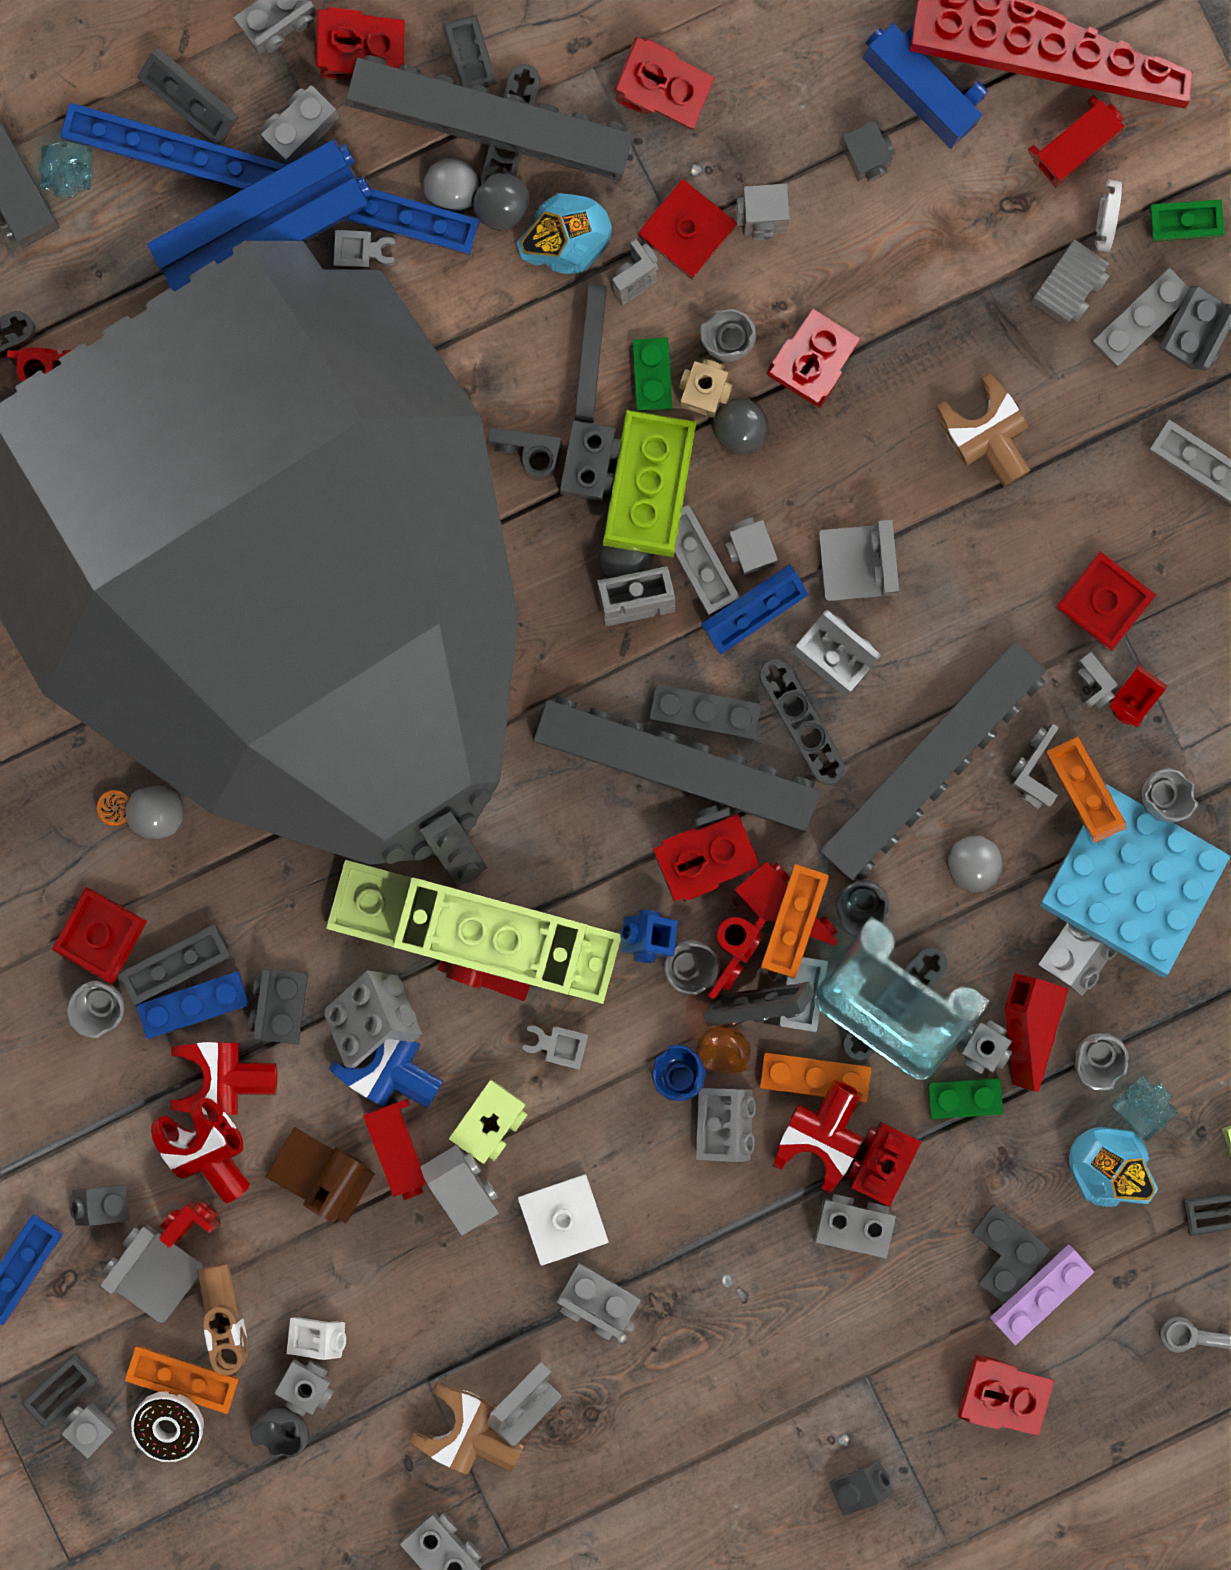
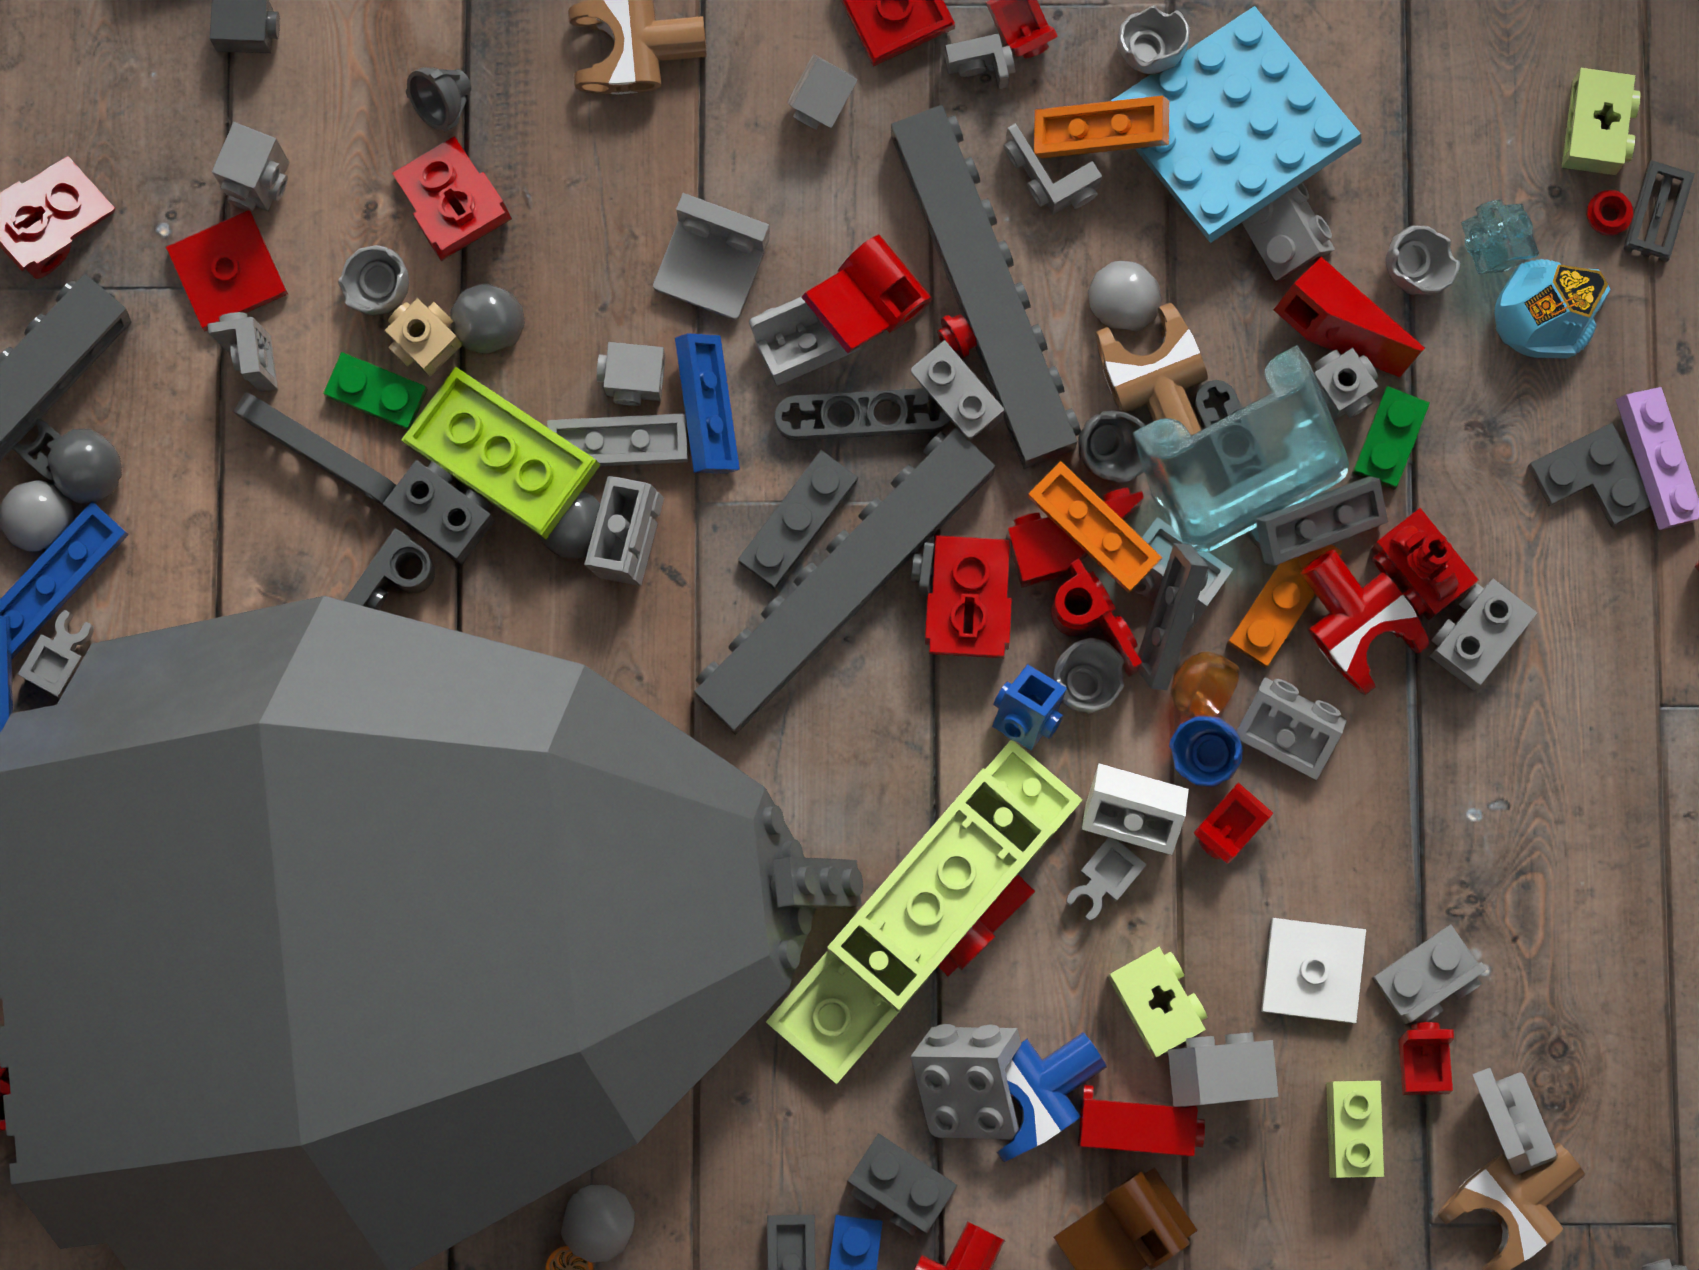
camera: 65 degrees left, 5 degrees down
(466, 1299) = (1355, 1129): none -> yellowish green brick
(537, 1326) = (1426, 1060): none -> red bracket
(566, 234) = (161, 409): medium azure helmet -> none
(613, 1043) = (1135, 809): none -> white brick
(636, 1115) = (1232, 824): none -> red bracket
(846, 779) = (958, 391): none -> light grey bracket
(879, 1077) = (1321, 520): none -> dark grey plate
(882, 314) = (438, 95): none -> dark grey piece
(883, 683) = (867, 295): none -> red piece
(888, 759) = (957, 334): none -> red plate
(926, 916) = (1155, 378): none -> medium nougat connector
(1015, 580) = (821, 93): none -> light grey brick
(1214, 1182) = (1616, 201): none -> red plate

